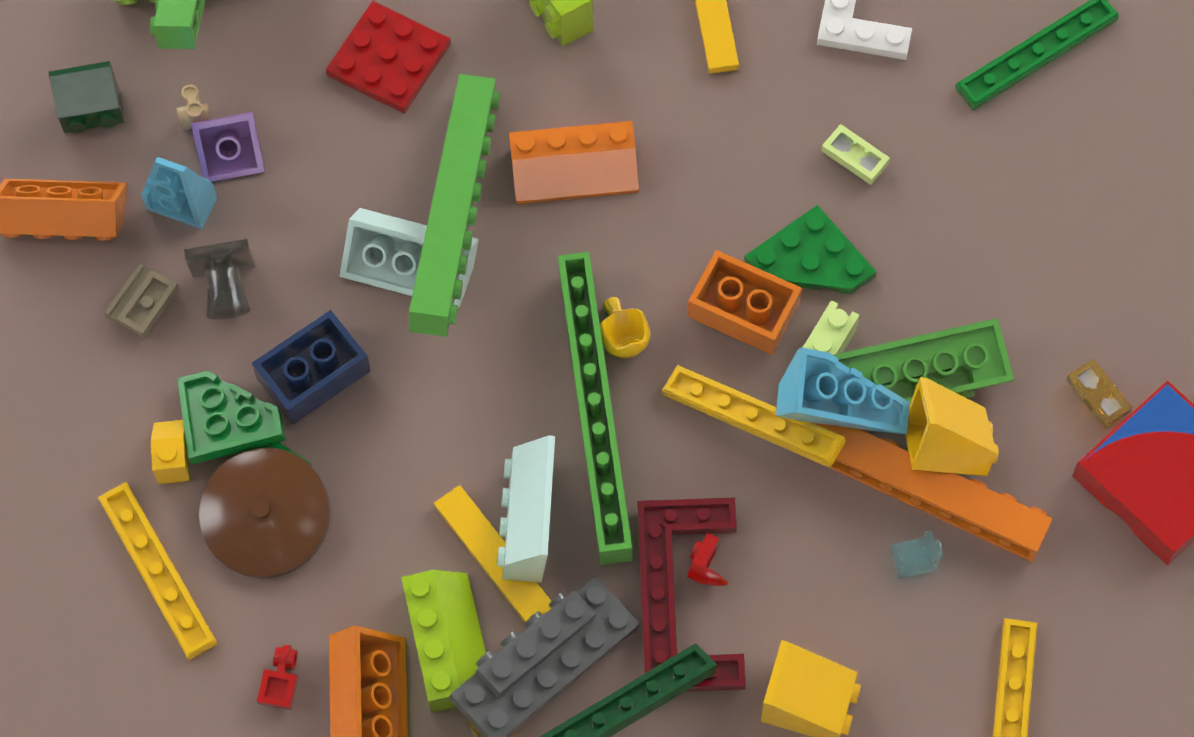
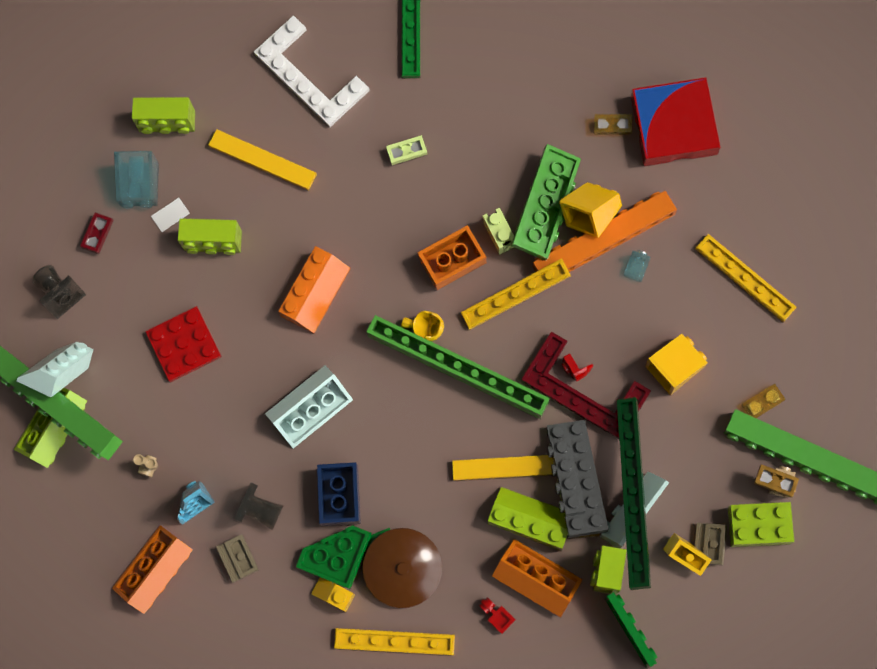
camera: 50 degrees left, 10 degrees up
(86, 97) = (99, 515): slope -> none
(228, 147) = (181, 459): medium lavender slope -> none
(452, 206) = (303, 365): bright green brick -> none
(527, 510) = (493, 435): light aqua slope -> none
(813, 255) = (446, 208): green plate -> none
(829, 393) = (539, 247): medium azure wedge -> none

